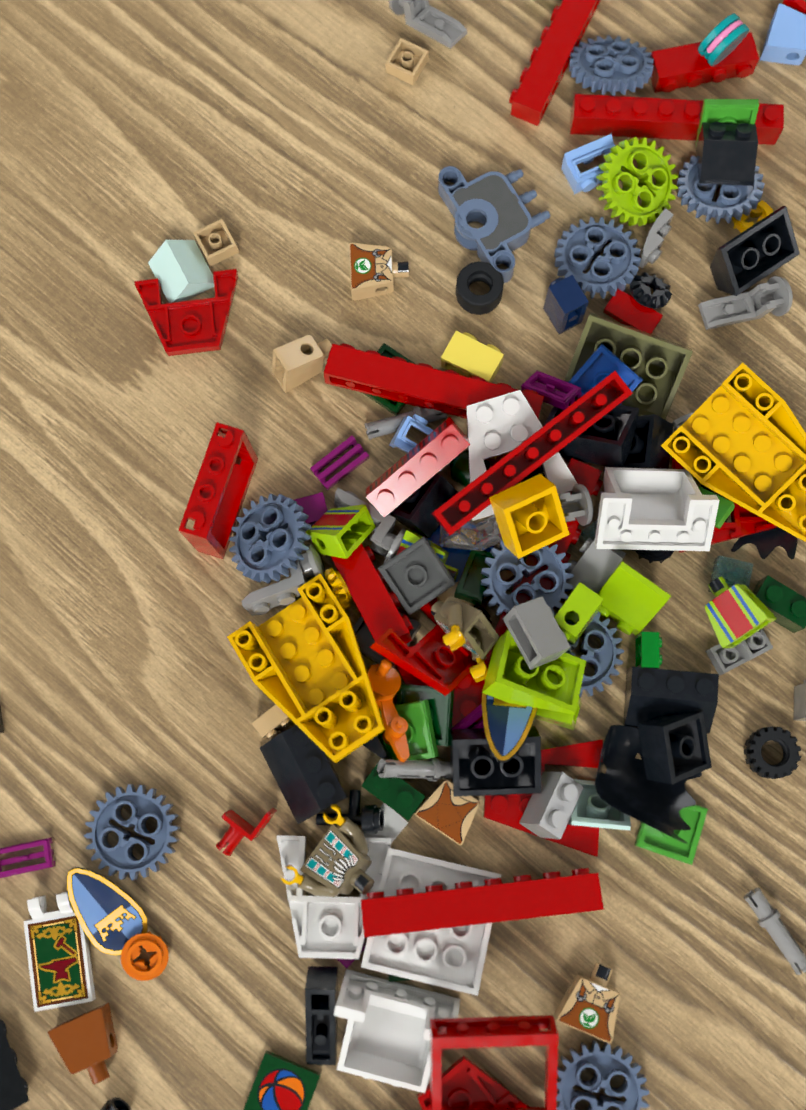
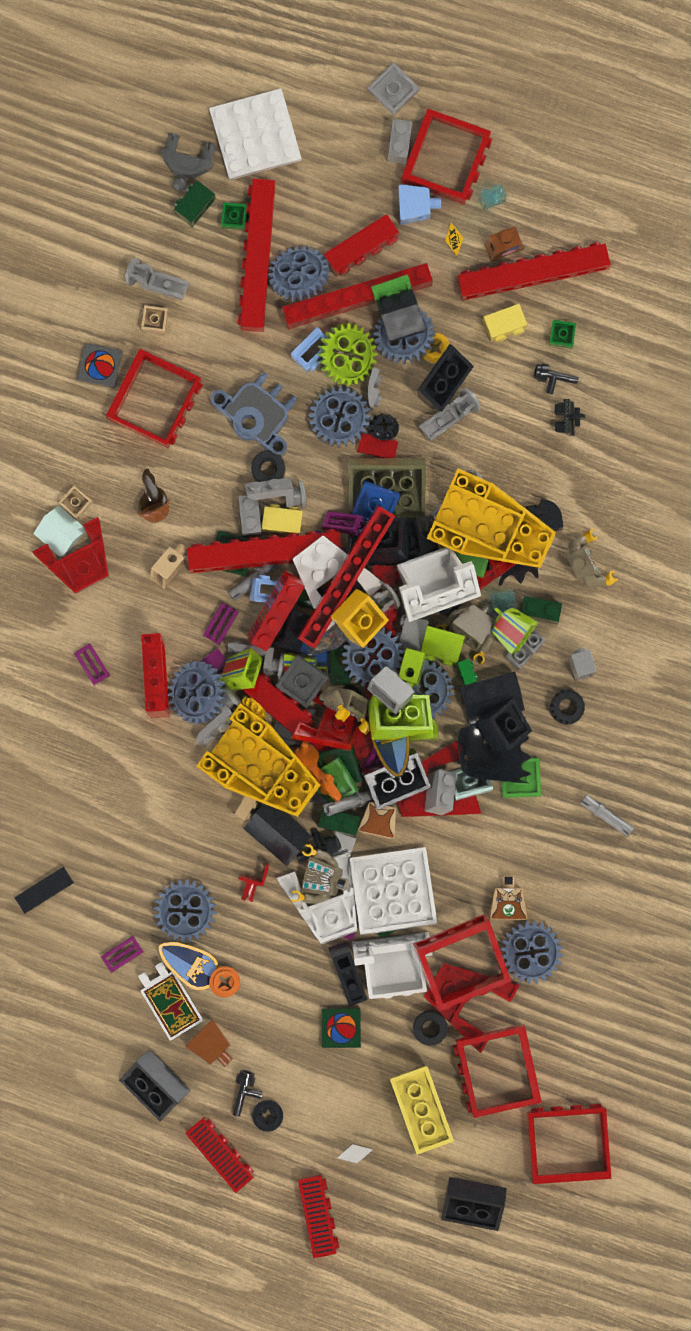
camera: 25 degrees left, 5 degrees up
(154, 474) = (100, 678): none -> magenta tile
(314, 279) = (154, 501): none -> piece
(316, 93) = (100, 365): none -> tile
(345, 121) = (127, 384): none -> red window
(373, 270) = (192, 482): torso -> none
(432, 336) = (250, 516): none -> light grey brick
(481, 904) = (419, 868): red brick -> none
(482, 311) = (278, 488): none -> light grey piece
(565, 304) = (330, 460): dark blue brick -> none
(687, 591) = (474, 625): none -> dark tan torso
(723, 39) = (369, 234): teal head -> none

